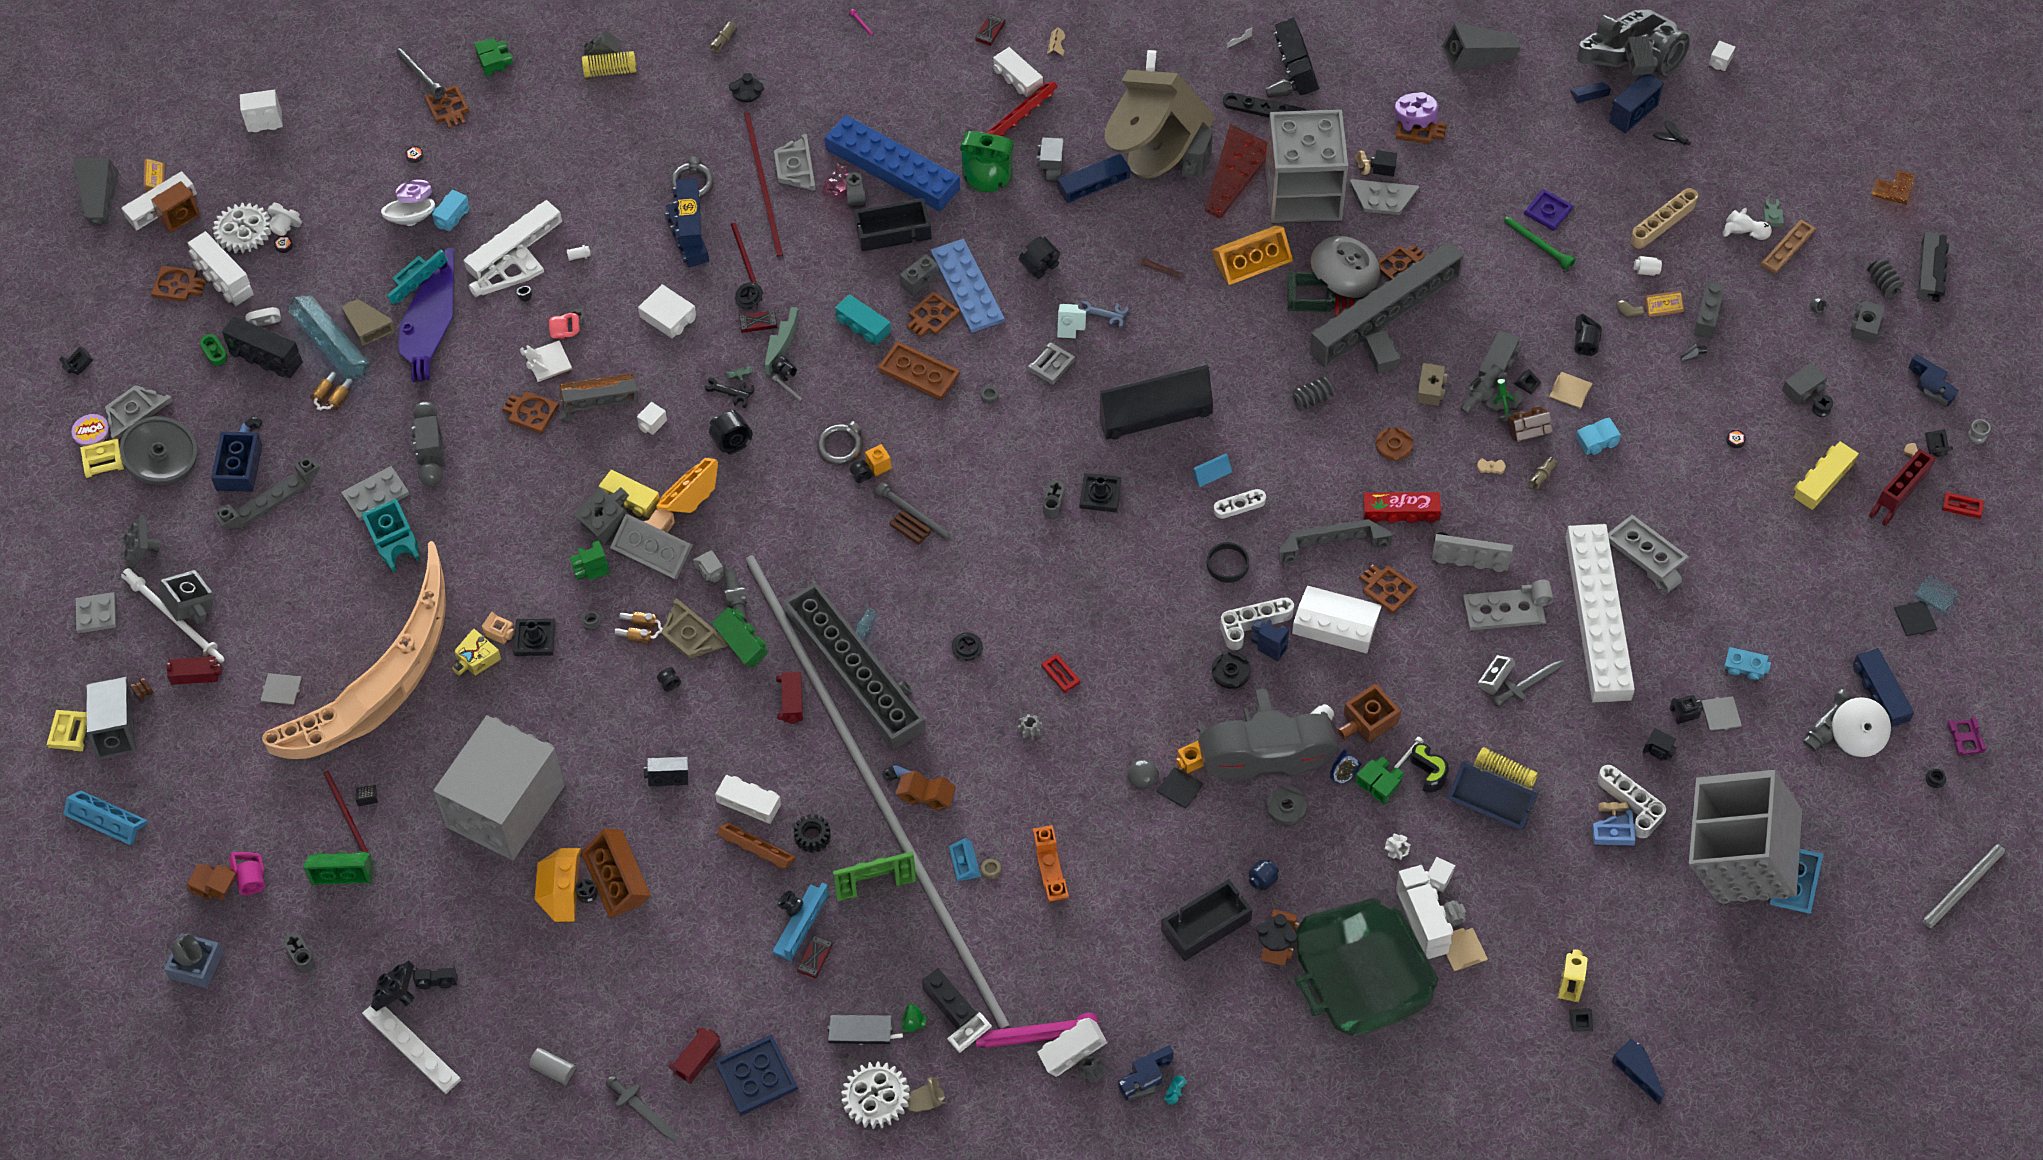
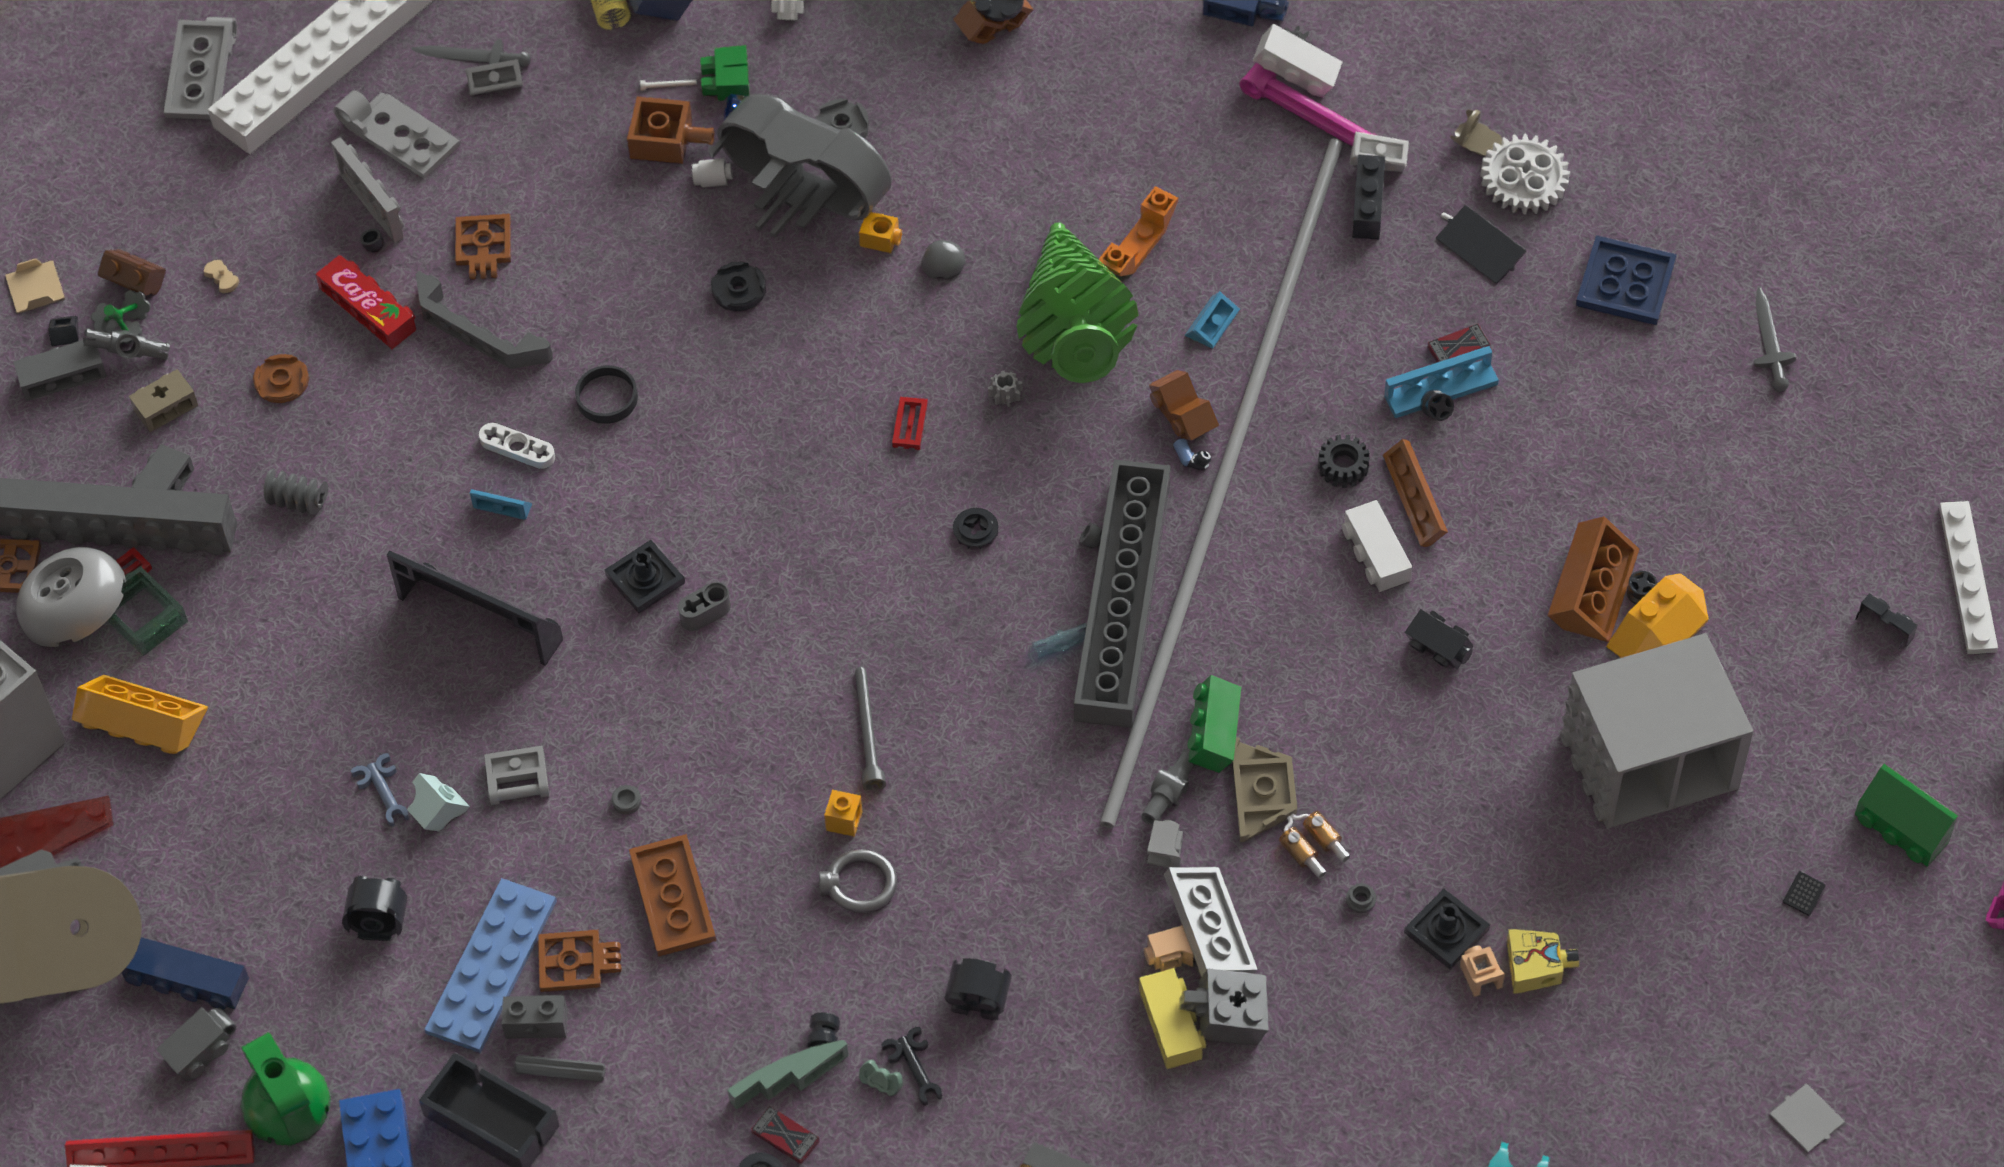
camera: 135 degrees left, 0 degrees up
(345, 812) = (1844, 894): dark red axle -> none
(377, 691) = (1683, 992): light nougat beam -> none
(393, 987) = (1946, 632): black plate -> none
(552, 1065) = (1829, 443): light grey brick -> none
(590, 562) = (1302, 952): green hips -> none
(651, 418) = (1049, 1099): white brick -> none
(668, 679) = (1338, 748): black wheel -> none
(691, 488) = (1099, 962): light orange wedge -> none
(696, 1055) = (1671, 338): dark red brick -> none
(776, 378) = (843, 1035): light grey piece -> none
(791, 697) = (1222, 618): dark red brick -> none
(861, 471) = (875, 819): black wheel -> none
(862, 320) = (665, 1017): teal brick -> none
(887, 271) = (560, 1068): none -> dark grey axle
(898, 518) = (887, 692): reddish brown tile -> none
(900, 865) = (1329, 350): bright green slope -> none
(912, 1019) = (1422, 211): green brick -> none
(990, 868) = (1194, 292): dark tan tile -> none
(1028, 776) = (1075, 310): none -> bright green plant
(1157, 264) = (252, 780): dark orange piece -> none
(1180, 787) = (921, 223): black piece -> none
(1206, 920) = (1043, 75): black piece -> none
(1263, 874) = (941, 78): dark blue head -> none
(1269, 639) = (667, 269): dark blue hips -> none
(1284, 612) = (656, 314): white beam -> none
(1336, 619) = (571, 249): white slope -> none
(1432, 764) = (661, 40): black animal -> none
(1542, 473) = (185, 223): dark tan pin -> none
(1598, 436) = (82, 211): medium azure brick -> none

